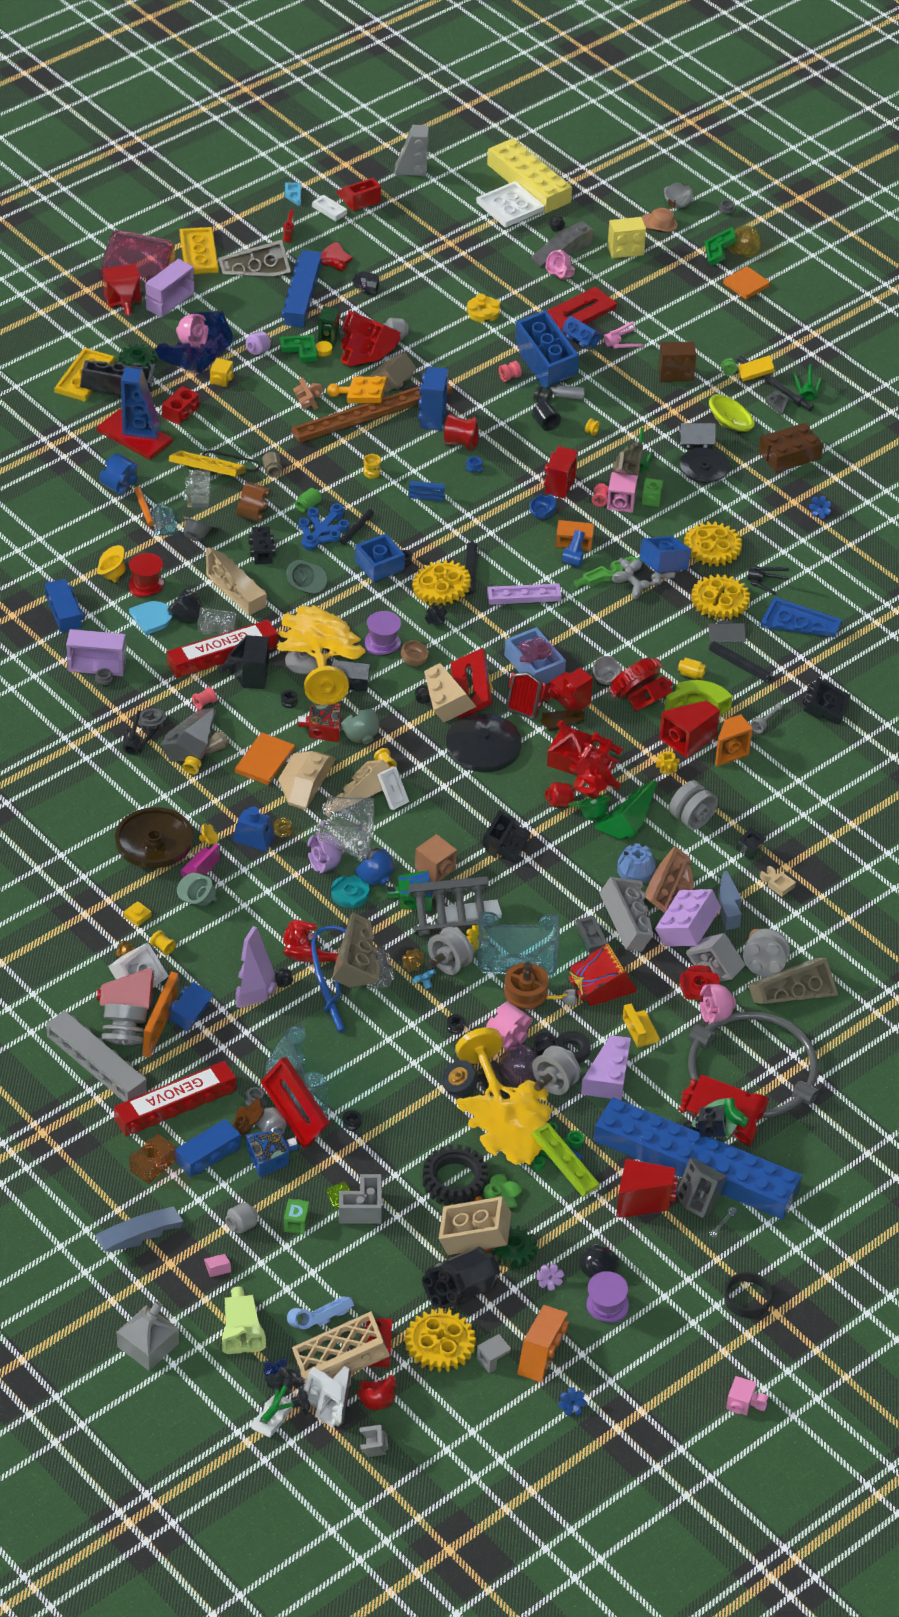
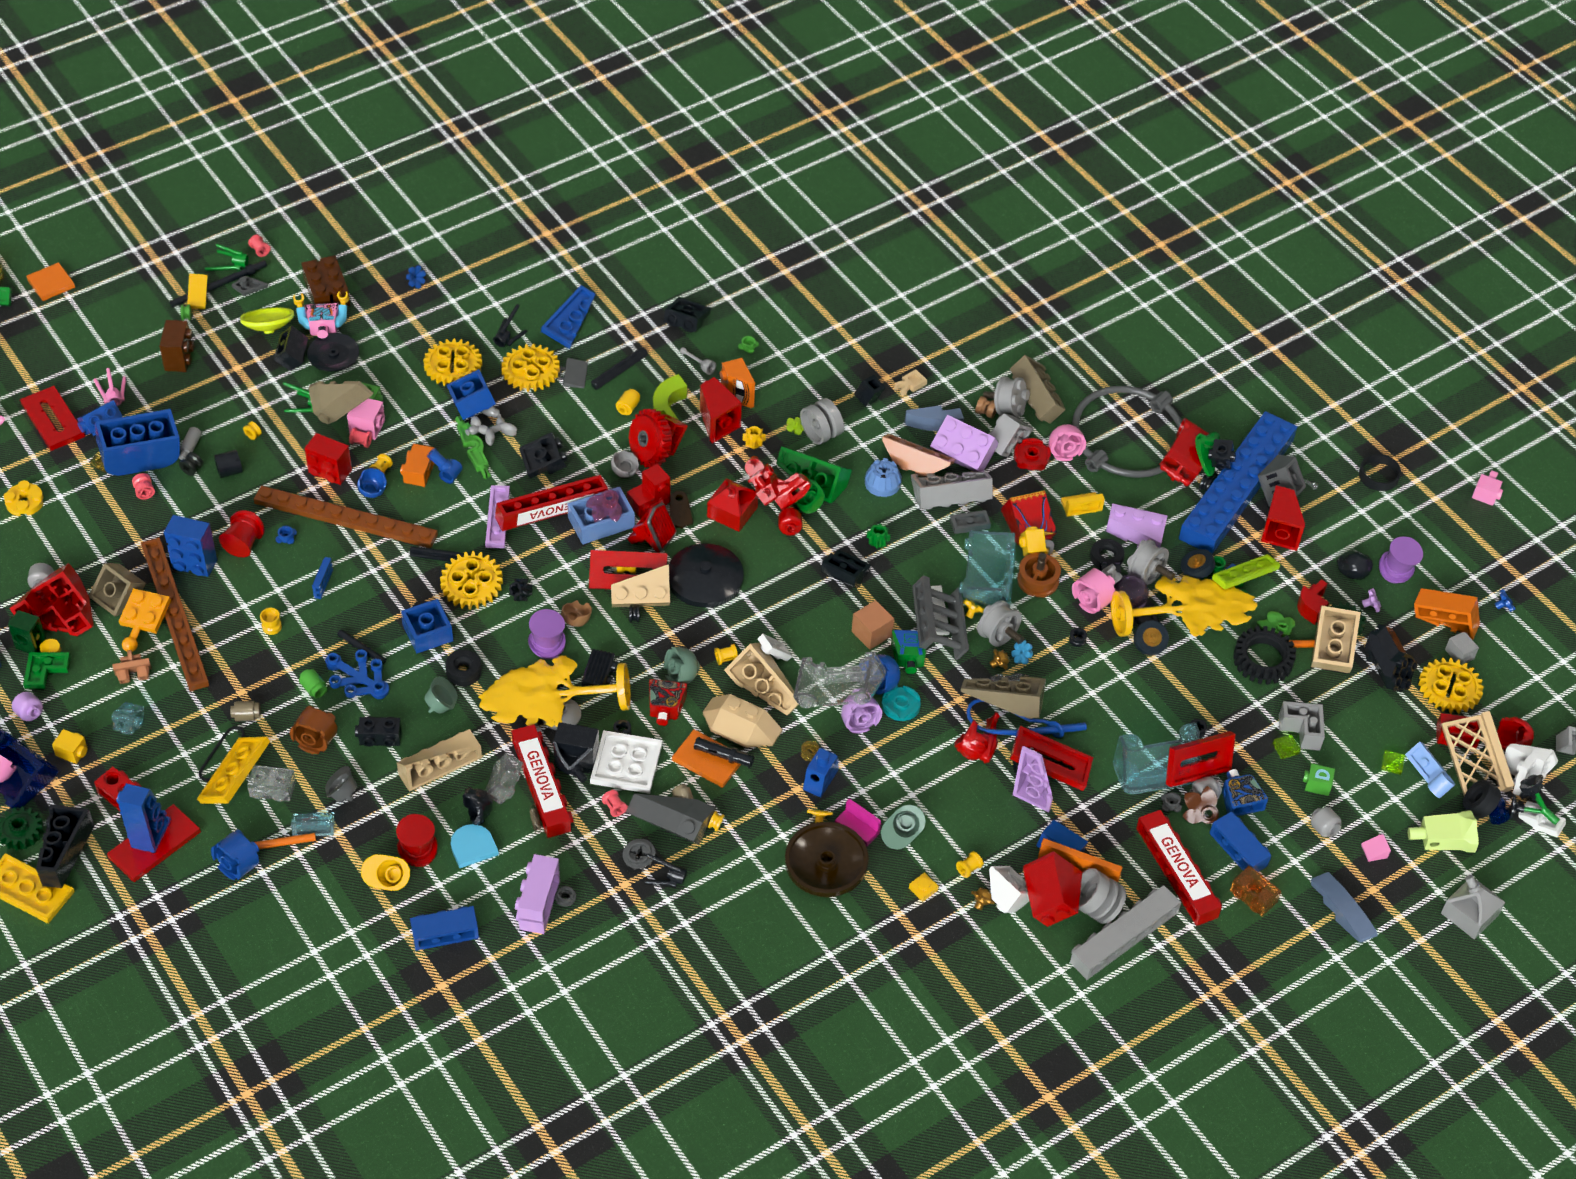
camera: 85 degrees left, 5 degrees up
(251, 397) = (128, 718): none -> clear light blue brick
(251, 703) = (626, 762): none -> white plate
(263, 766) = (729, 754): none -> black pin
(281, 1347) = (1482, 798): none -> black tyre
(285, 969) = (1079, 761): none -> red piece
(332, 1286) = (1392, 762): none -> clear neon green plate
(341, 581) = (466, 677): none -> black tyre
(504, 500) = (346, 517): none -> dark orange plate
(530, 1037) = (1111, 571): none -> light grey wheel
(535, 615) = (545, 503): none -> red brick
(537, 1216) = (1311, 601): none -> red brick
(555, 862) = (878, 536): none -> green gear
(561, 973) = (1032, 541): none -> yellow brick
(568, 511) = (380, 464): none -> yellow bush
(568, 1119) = (1198, 563): none -> black wheel
(605, 616) = (543, 455): none -> black plate
(743, 448) = (322, 318): none -> torso
(799, 753) = (748, 344): none -> bright green plate
(829, 401) = (261, 248): none -> coral bush

